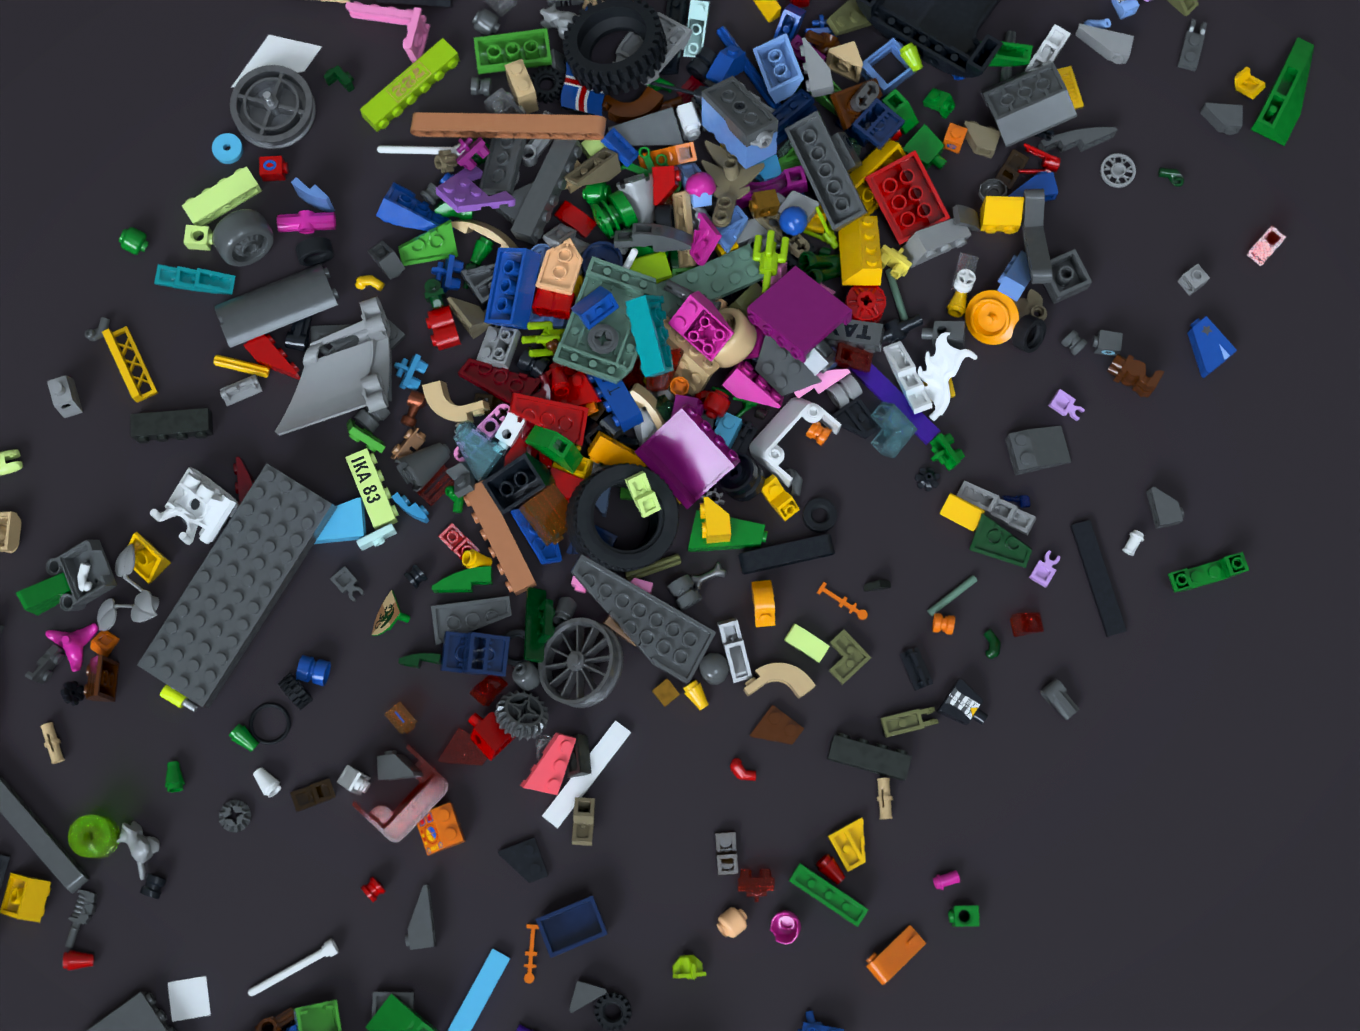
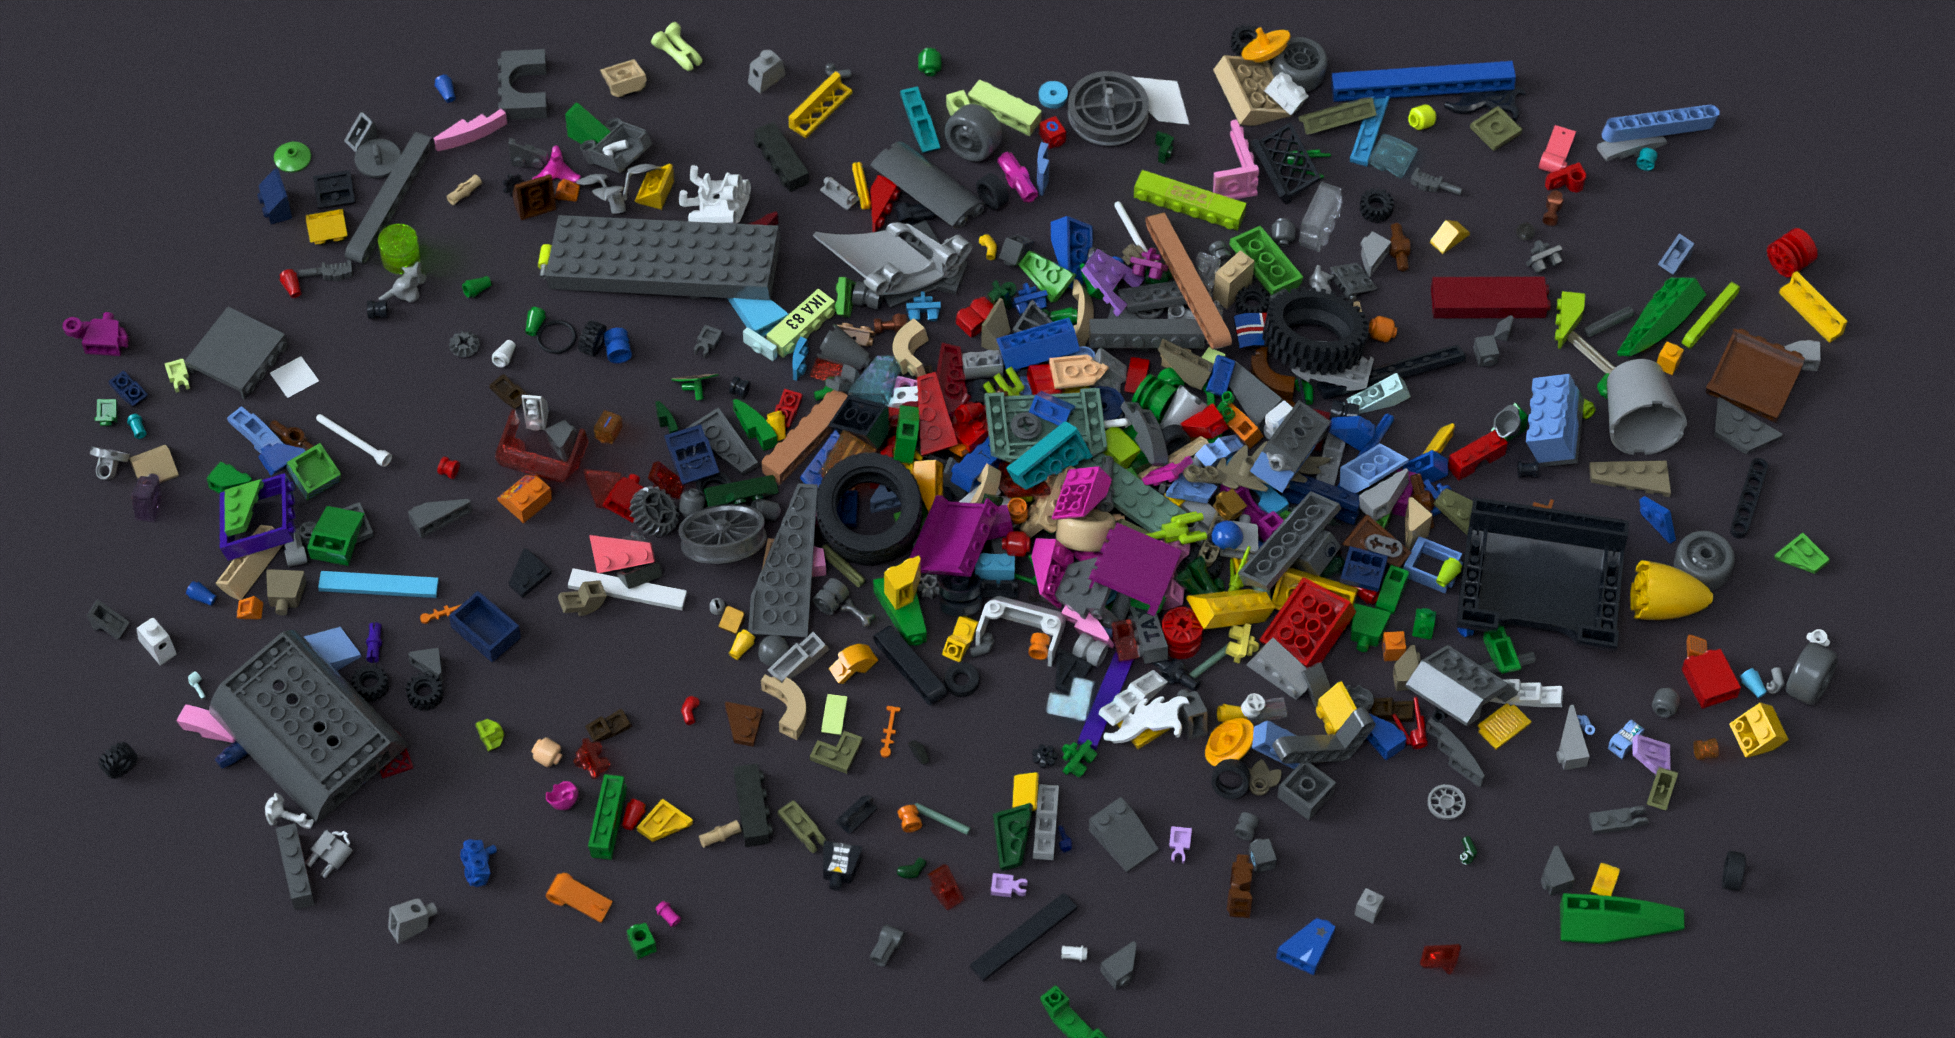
camera: 65 degrees right, 20 degrees down
(642, 494) = (893, 503): yellowish green slope -> none
(642, 703) = (714, 610): none -> light grey hinge
(700, 183) = (1219, 446): dark pink hair -> none

